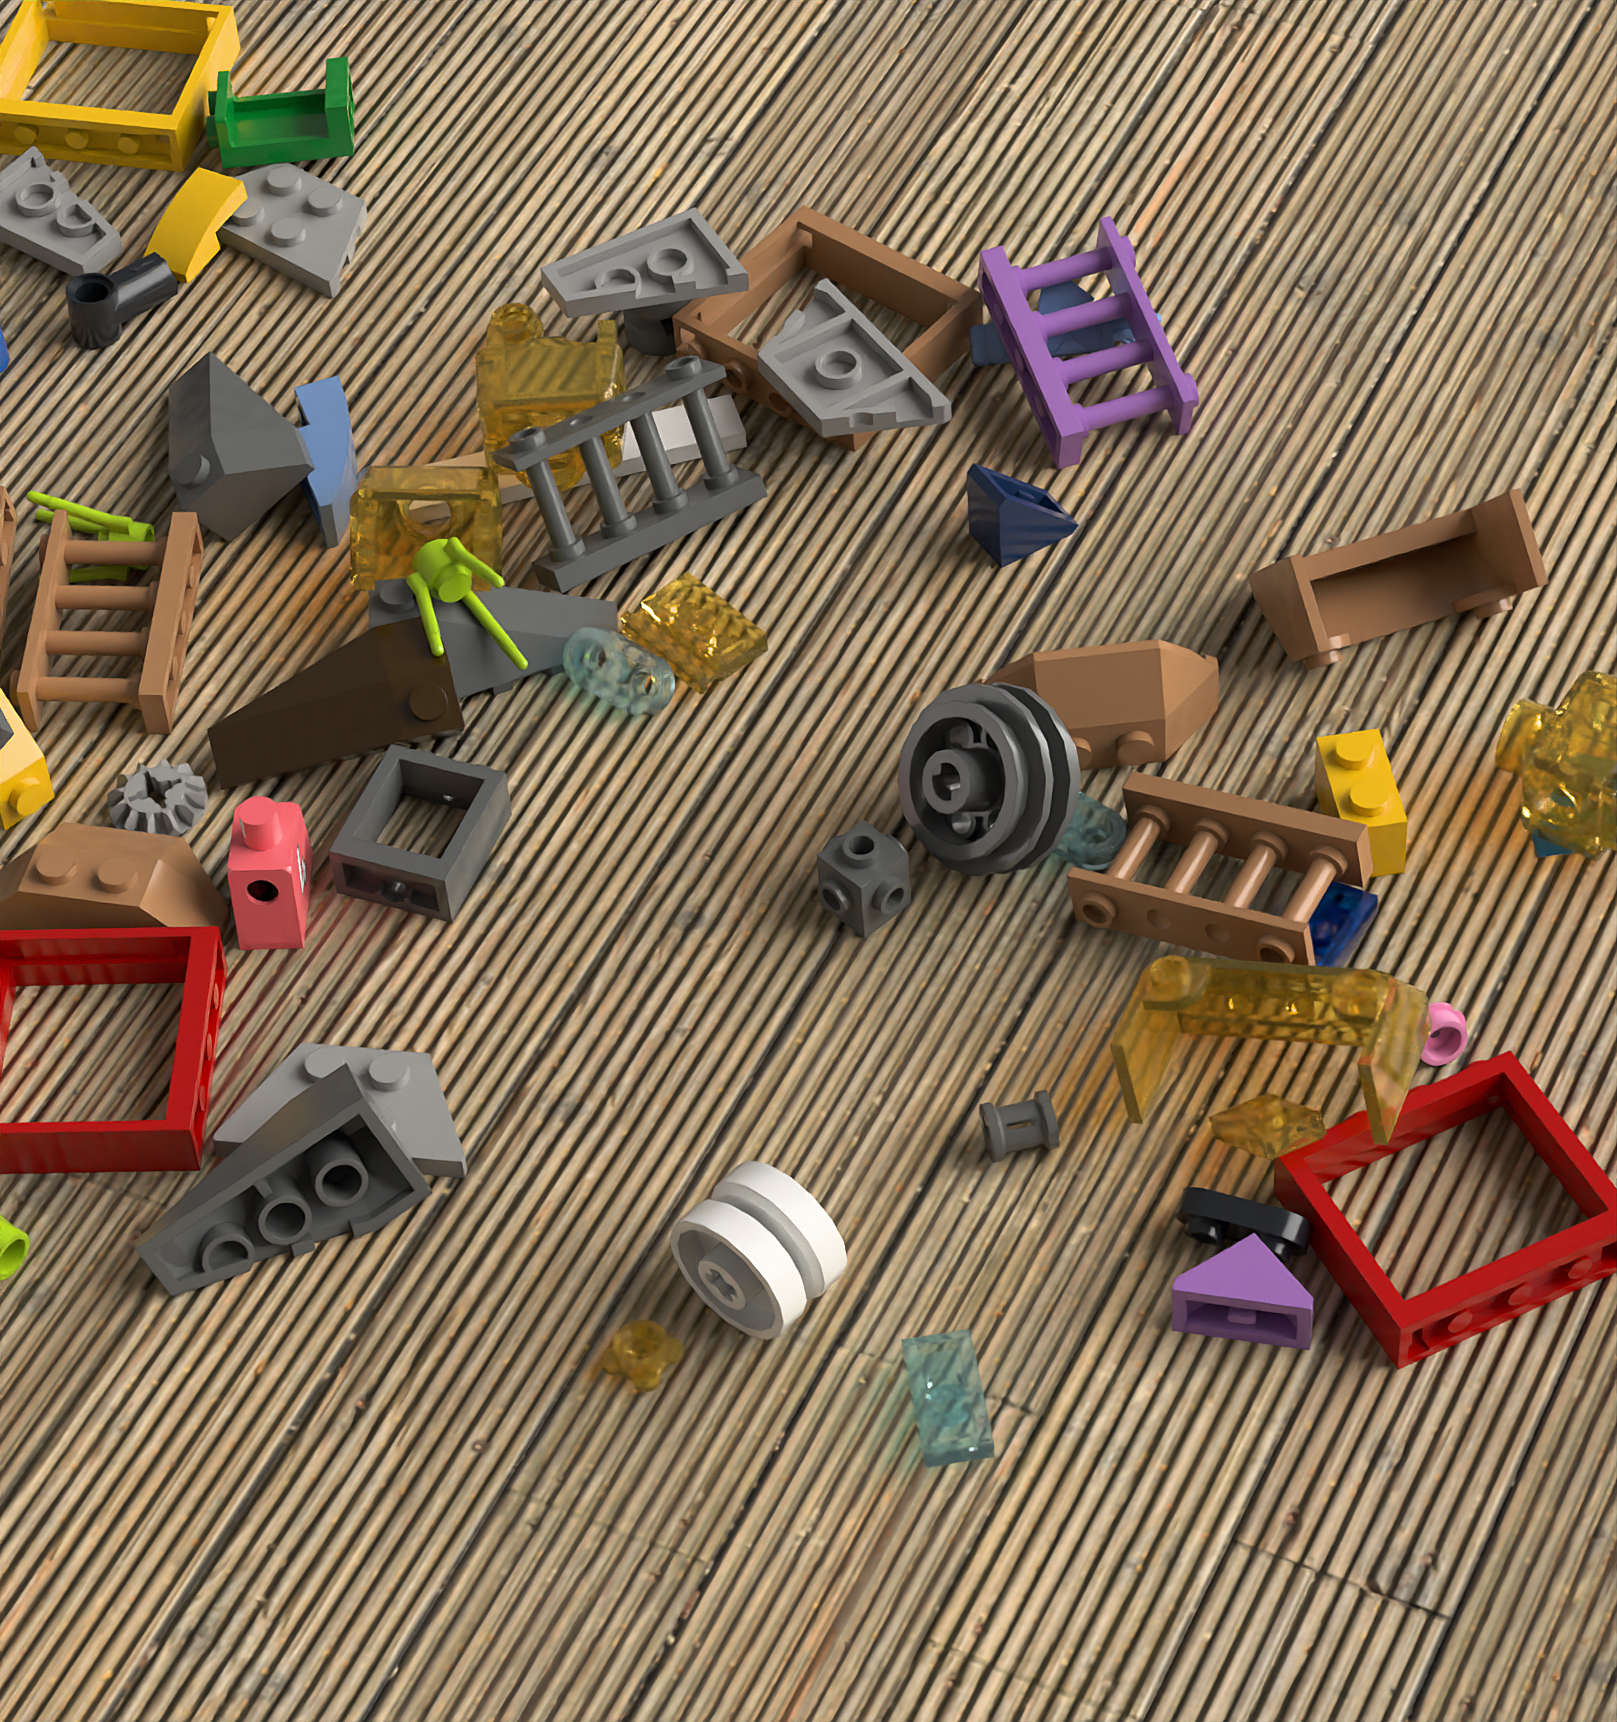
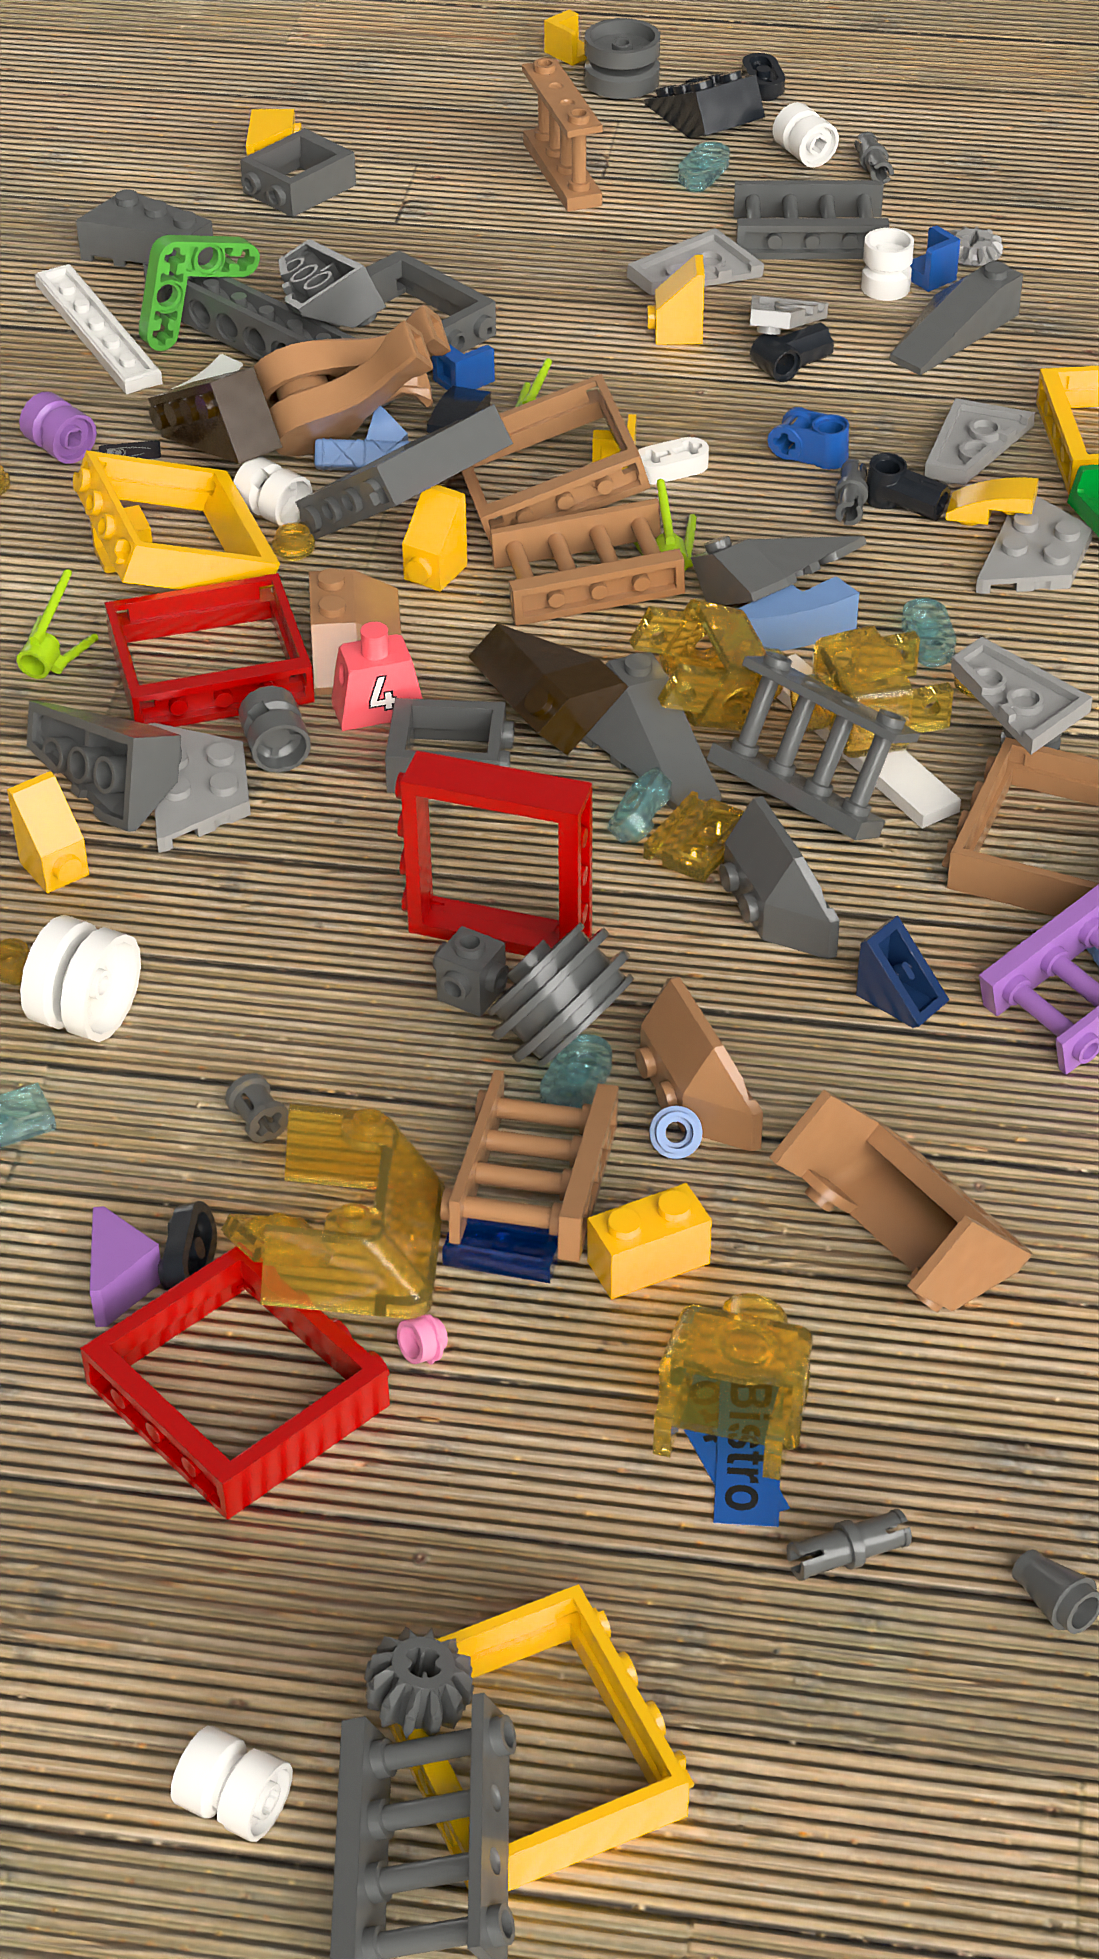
camera: 70 degrees right, 5 degrees down
(90, 349) = (851, 492): none -> dark grey pin
(184, 800) = (432, 632): light grey gear -> none
(331, 997) = (274, 729): none -> dark grey wheel
(409, 347) = (934, 628): none -> clear light blue plate
(441, 1264) = (47, 833): none -> yellow slope
(445, 573) = (650, 676): lime plant -> none
(790, 666) = (504, 791): none -> red window
(816, 568) = (777, 885): none -> dark grey wedge
(847, 372) = (976, 828): light grey wing -> none
(1191, 753) = (691, 1138): none -> plate

